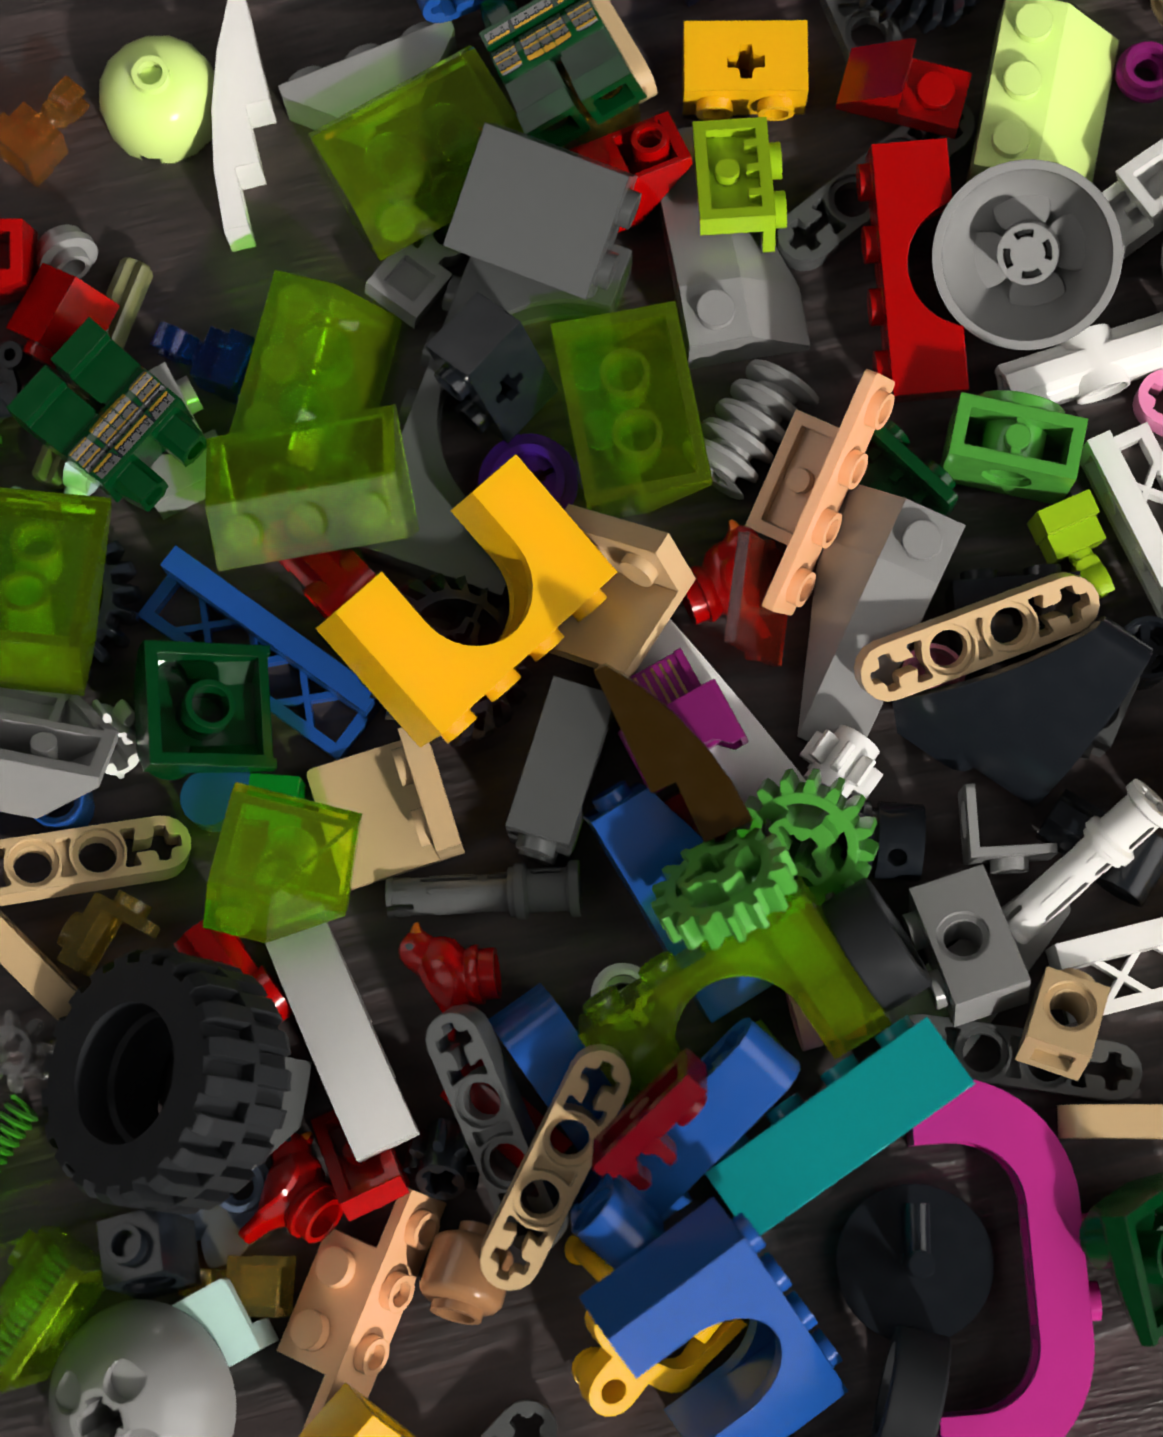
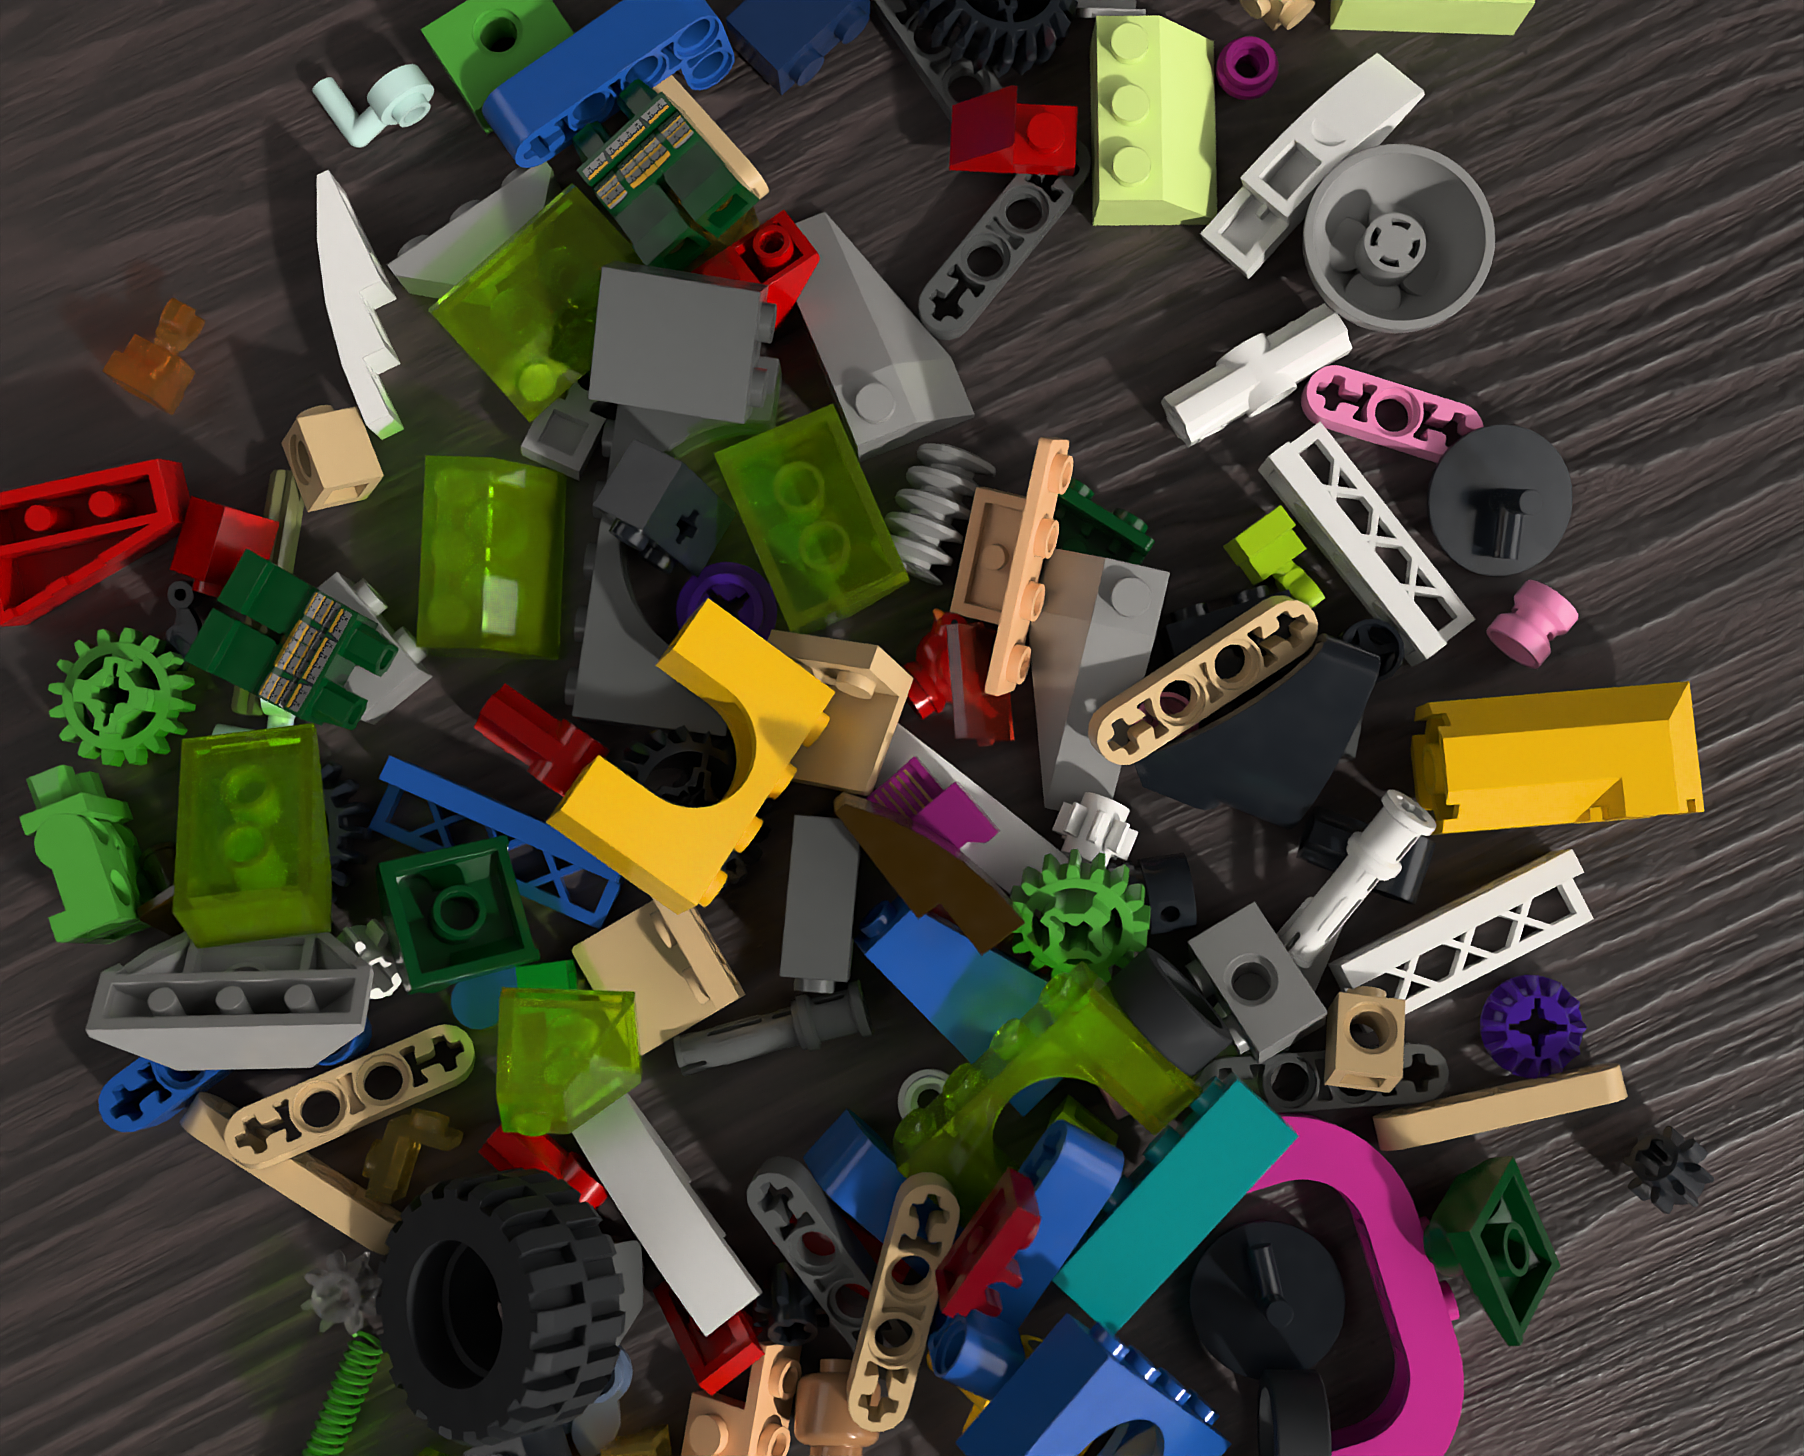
camera: 15 degrees left, 5 degrees up
(67, 250) = (214, 477): light grey plate -> none
(158, 98) = (270, 300): yellowish green cylinder -> none
(183, 256) = (331, 457): none -> tan brick
(216, 362) = (390, 556): clear blue piece -> none
(295, 1195) = (652, 1372): red animal -> none
(308, 488) = (508, 675): clear neon green slope -> none
(450, 970) = (758, 1117): red animal -> none
(724, 888) = (1012, 998): bright green gear -> none
(736, 179) = (867, 264): lime bracket -> none
(771, 52) = (871, 123): yellow brick -> none
(905, 190) = (1036, 240): red arch -> none
(1002, 859) = (1269, 889): light grey bracket -> none
(1014, 445) = (1198, 476): bright green brick -> none
(1053, 295) = (1187, 322): light grey piece -> none

